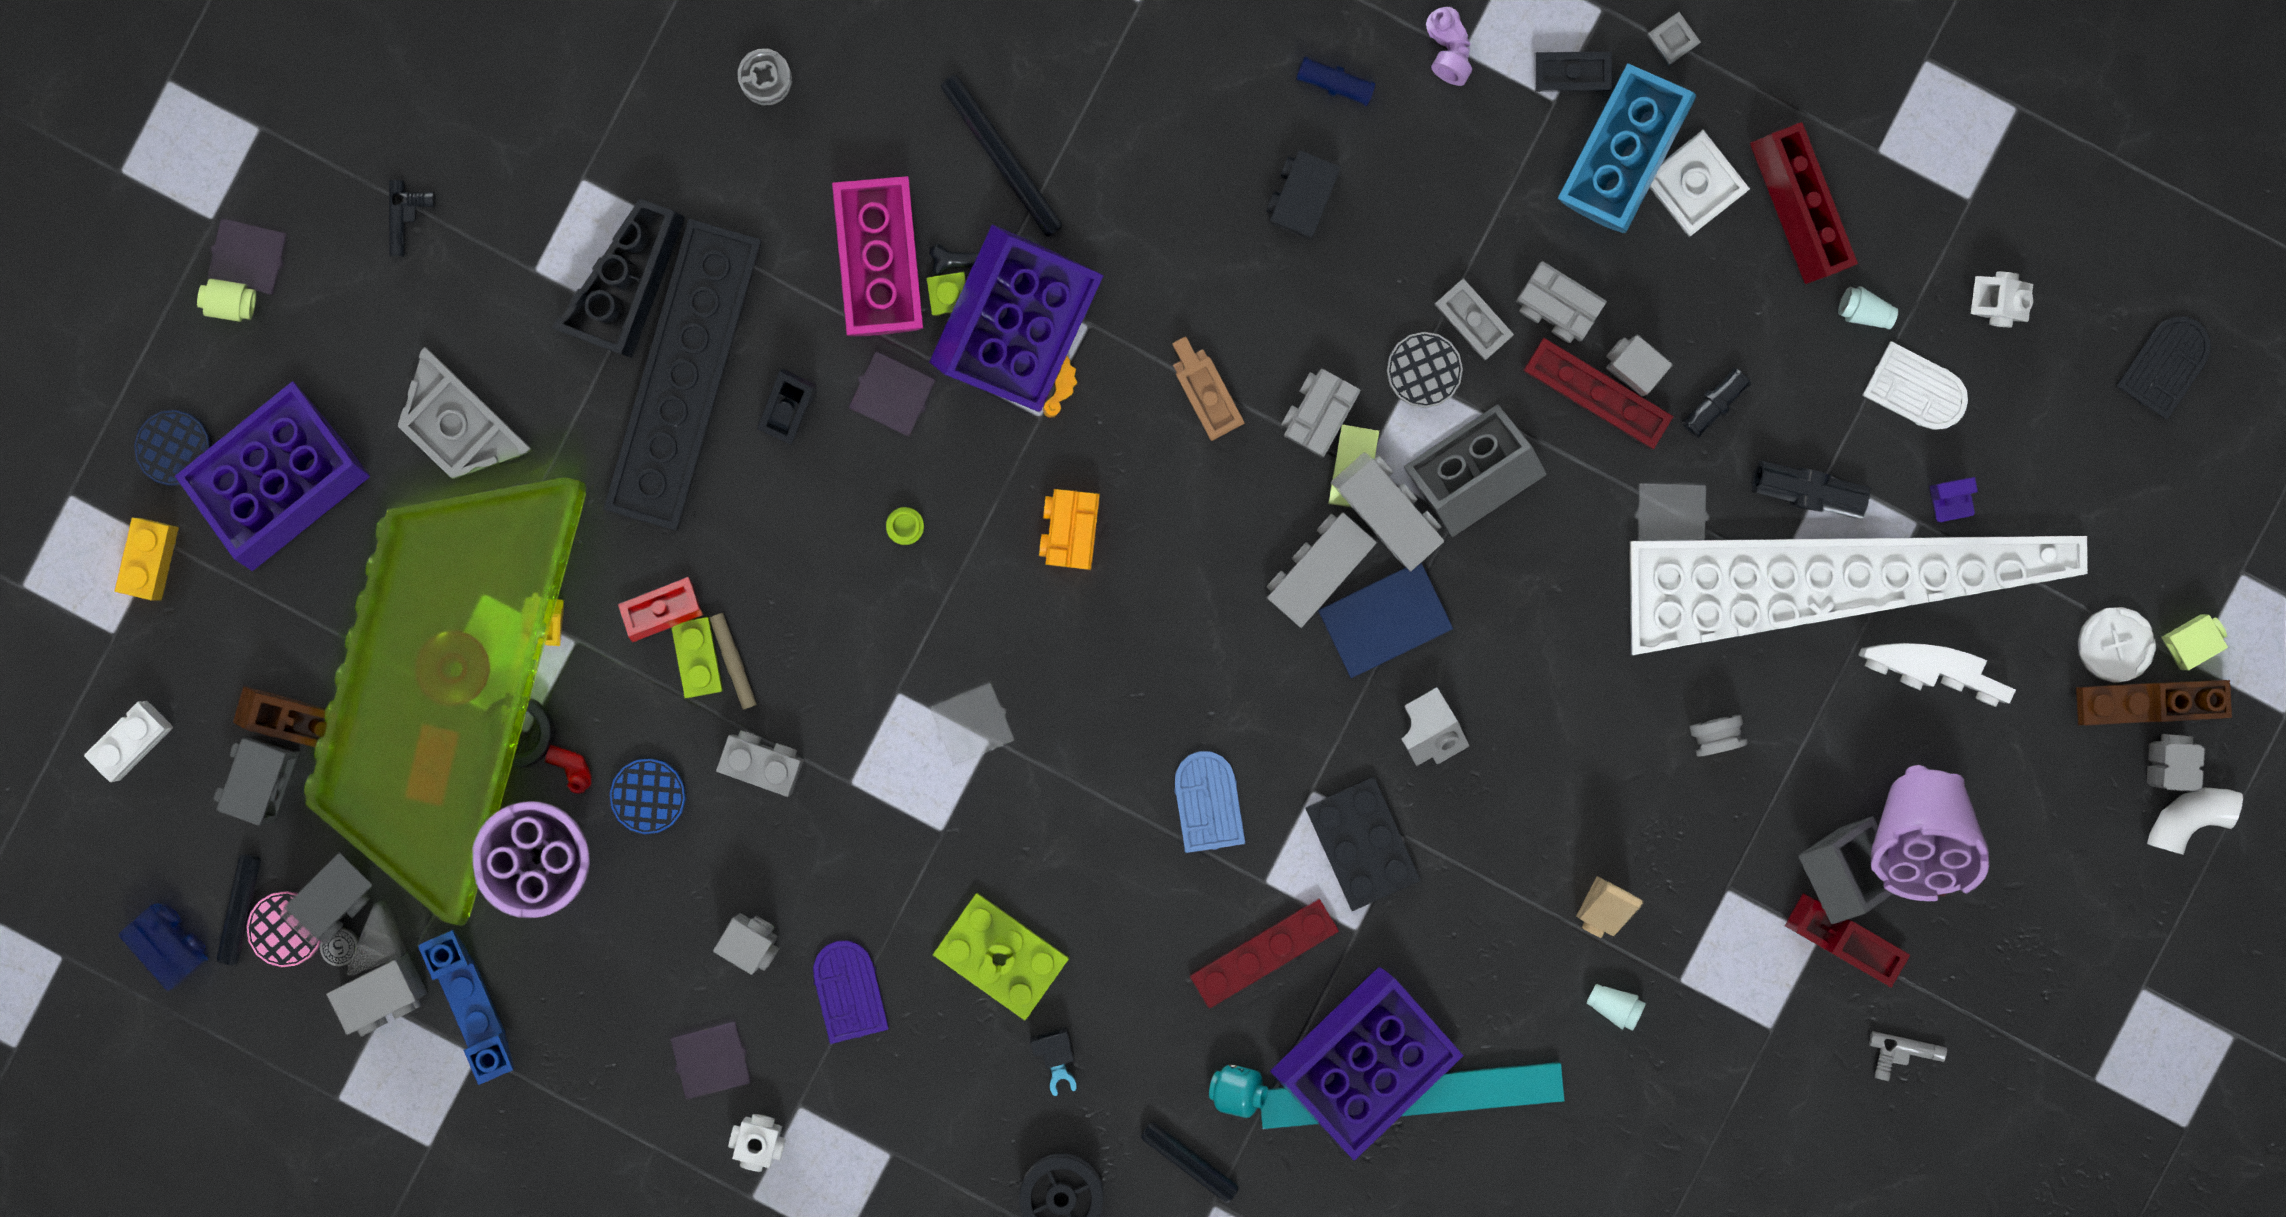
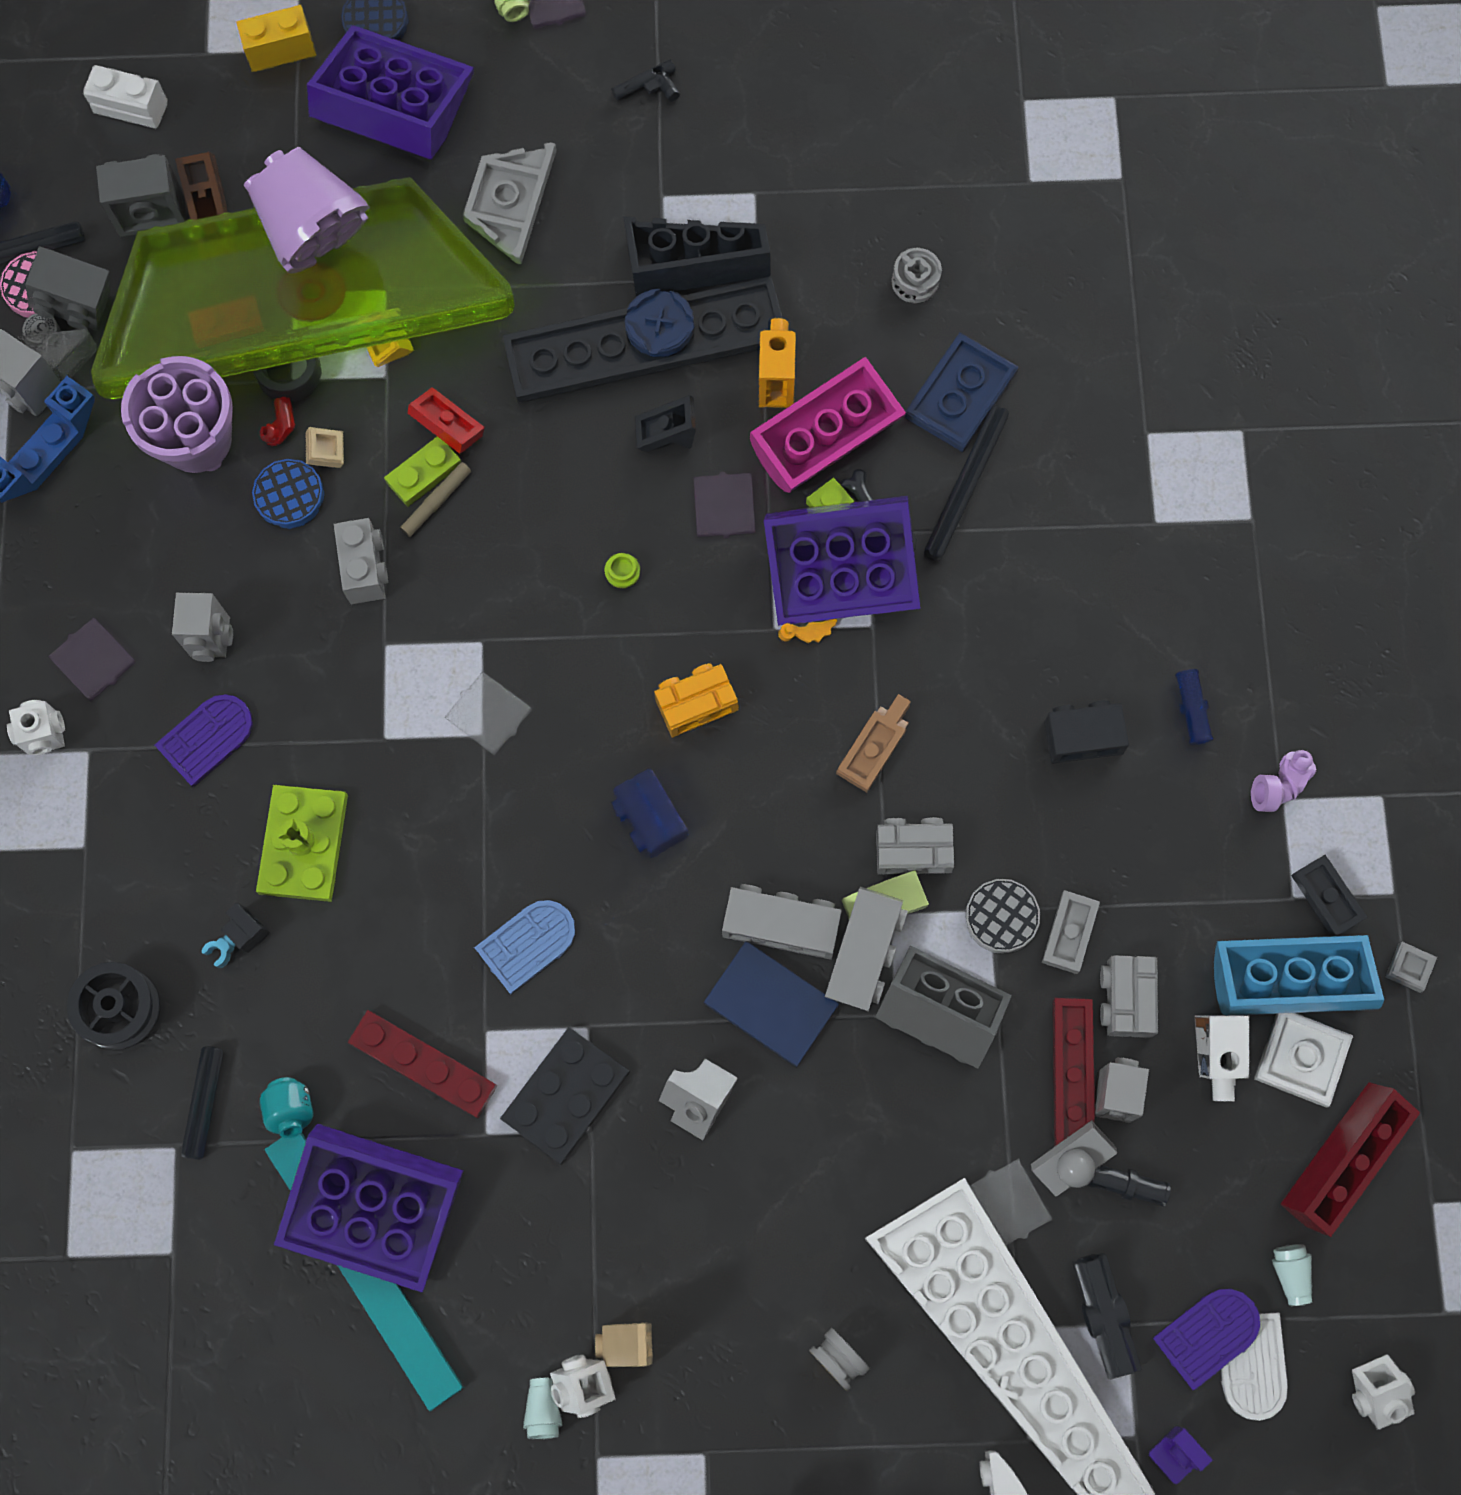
camera: 65 degrees right, 15 degrees down
(382, 634) = (304, 208): none -> lavender cone
(621, 738) = (324, 447): none -> tan tile
(678, 353) = (659, 323): none -> dark blue tile
(798, 275) = (777, 365): none -> light orange torso
(907, 105) = (961, 392): none -> dark blue tile
(1154, 631) = (649, 813): none -> clear blue brick
(1618, 962) = (581, 1386): none -> white brick
(1641, 251) = (1221, 1036): none -> white torso
(1670, 438) = (1074, 1159): none -> light grey tile
(1875, 411) = (1210, 1335): none -> dark purple window

